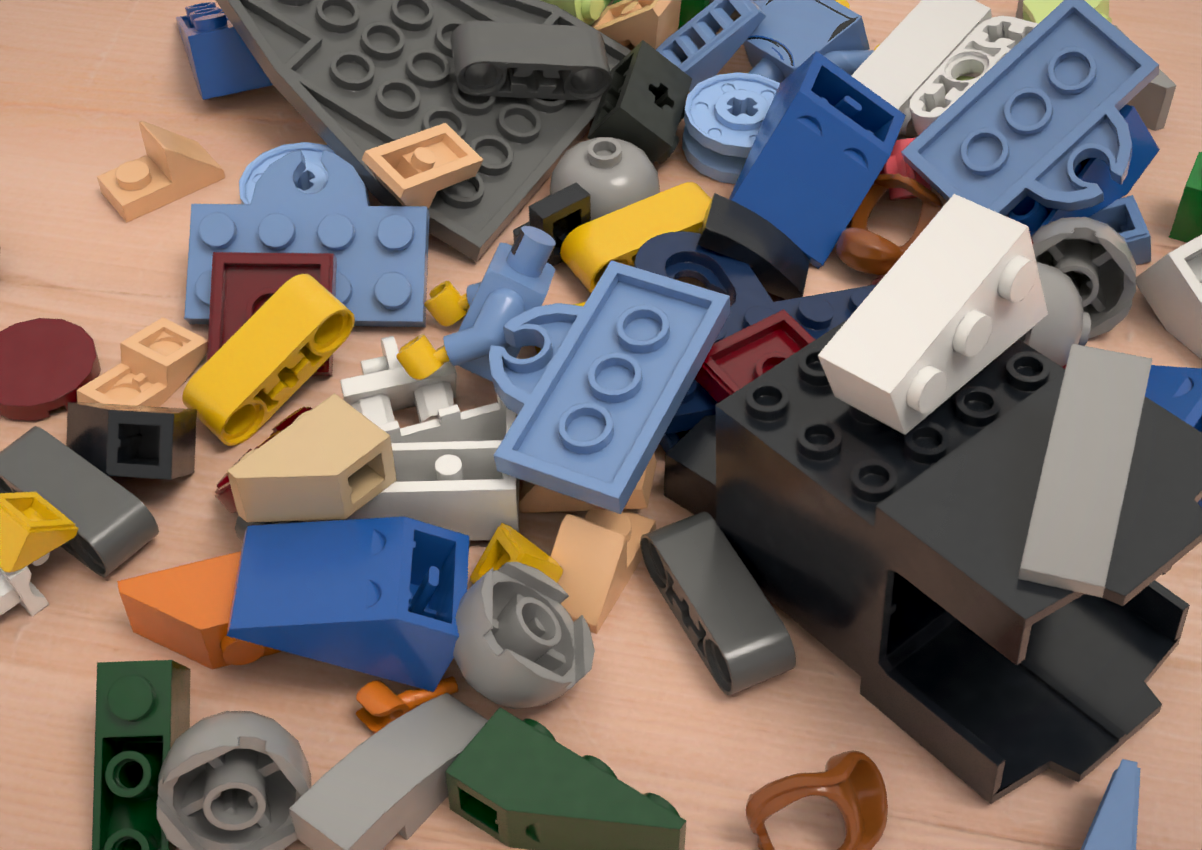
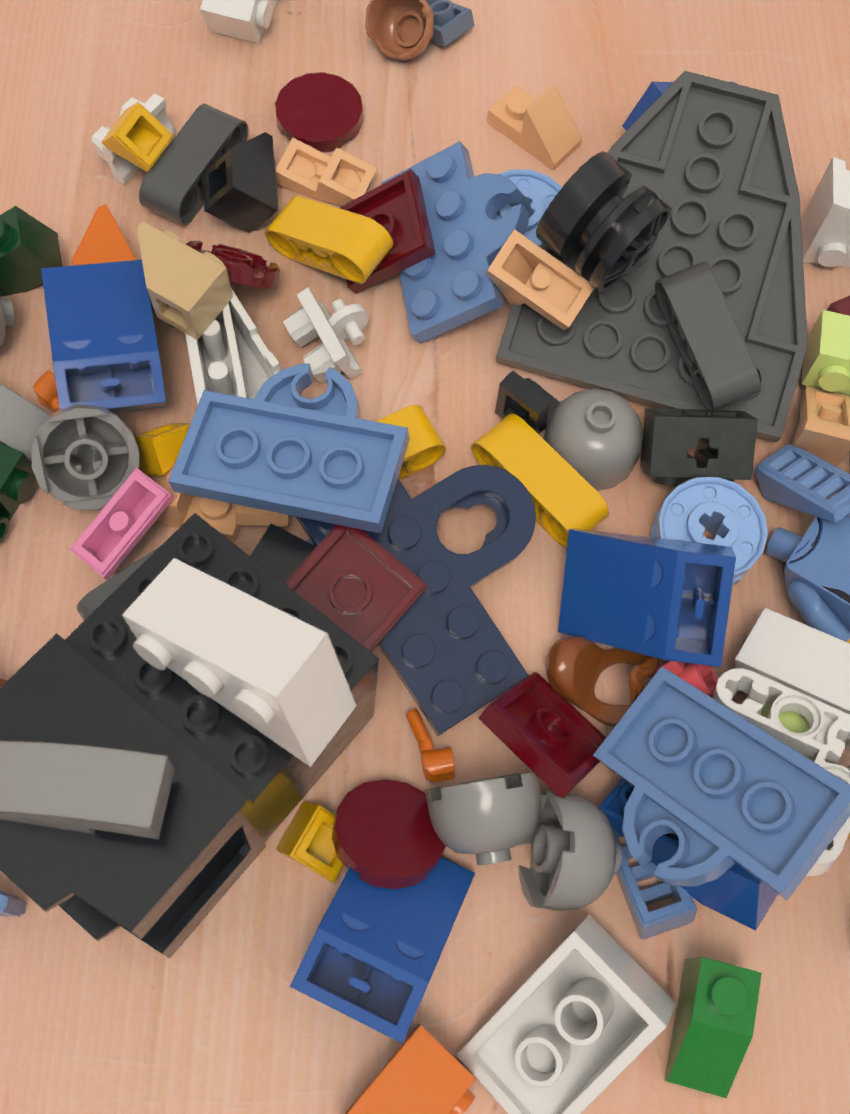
camera: 75 degrees right, 20 degrees up
(390, 76) = (596, 216): none -> black wheel
(512, 284) = (387, 371): medium blue torso -> none
(629, 614) = (121, 523): none -> bright pink slope
(755, 241) = (537, 564): black slope -> none

